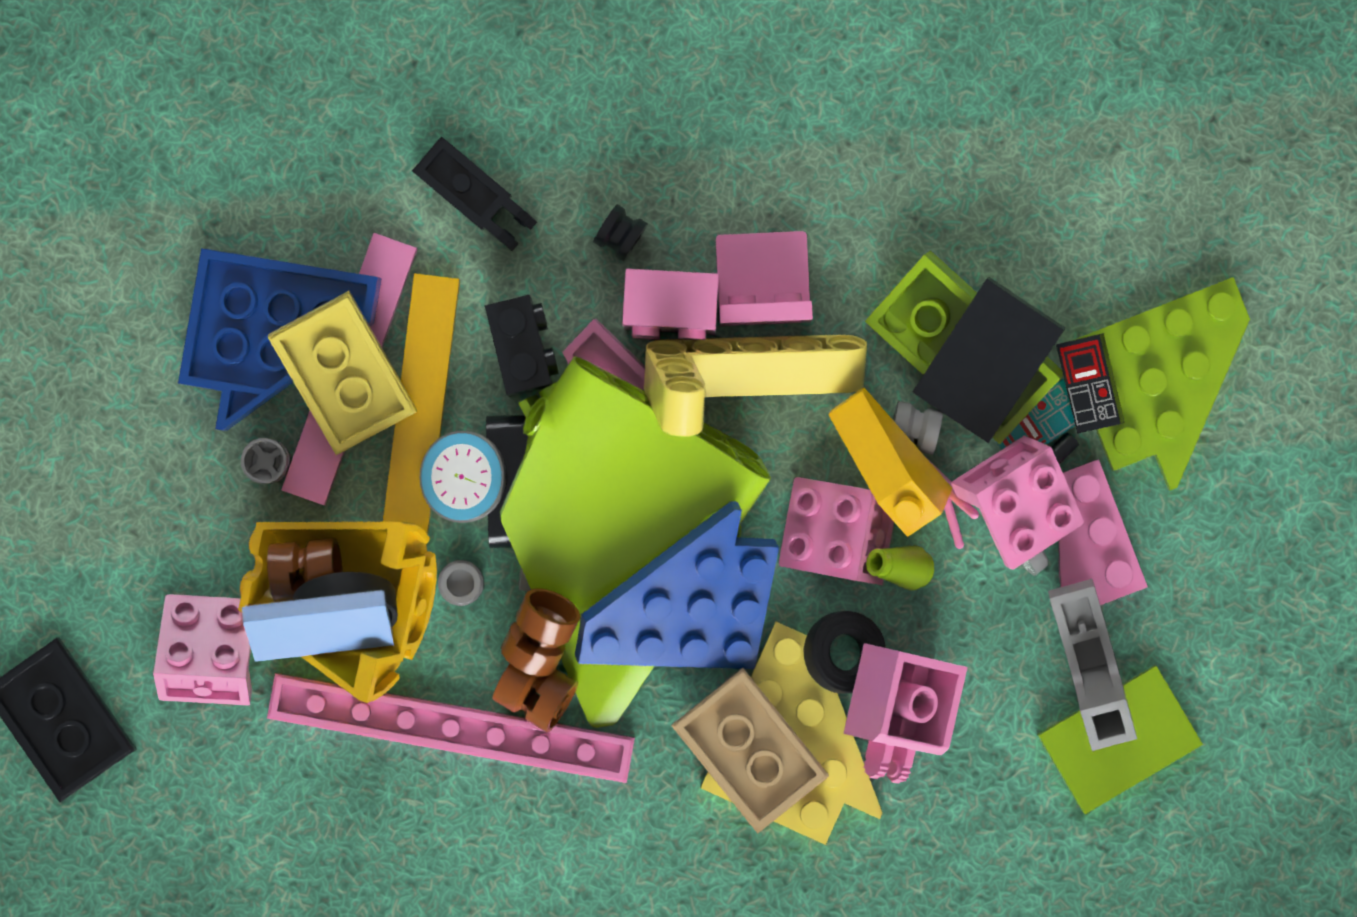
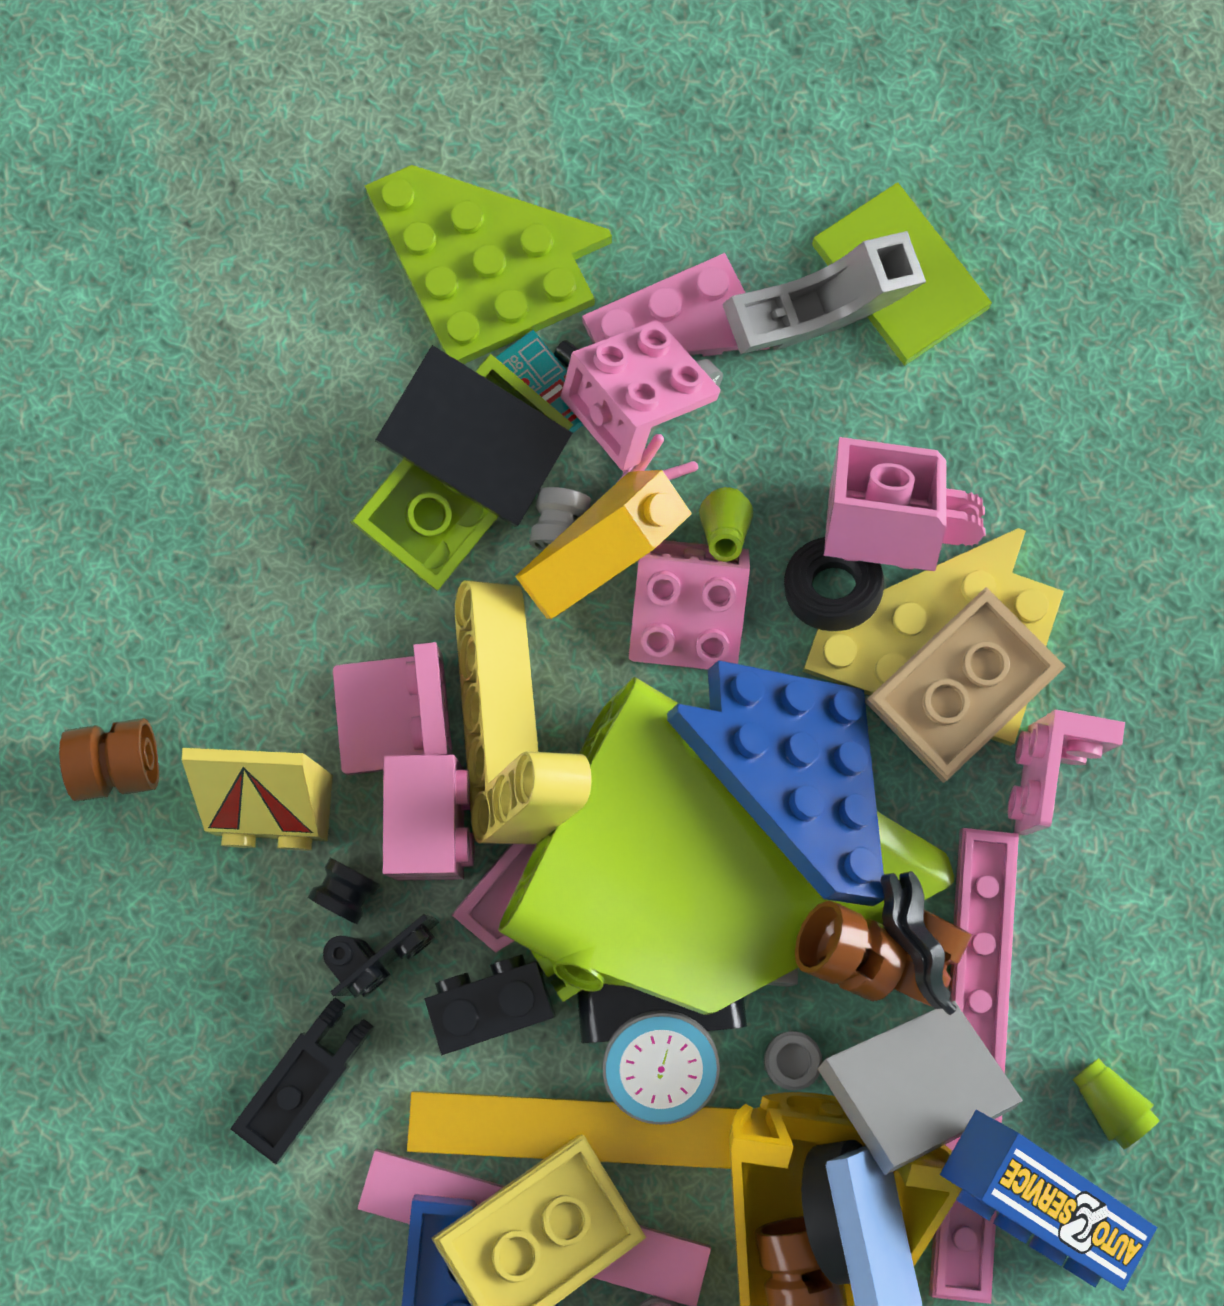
camera: 95 degrees left, 10 degrees down
(340, 763) = (1046, 1199): none -> blue brick
(408, 833) = (1115, 1104): none -> lime cone
(434, 675) = (918, 1086): none -> light grey tile
(555, 246) = (362, 969): none -> black hinge
(557, 676) = (905, 924): none -> black hair
(694, 832) = (1051, 741): none -> bright pink bracket
(695, 172) = (260, 796): none -> light yellow slope
(740, 47) = (98, 760): none -> dark orange wheel
(1090, 383) = (495, 324): black tile -> none

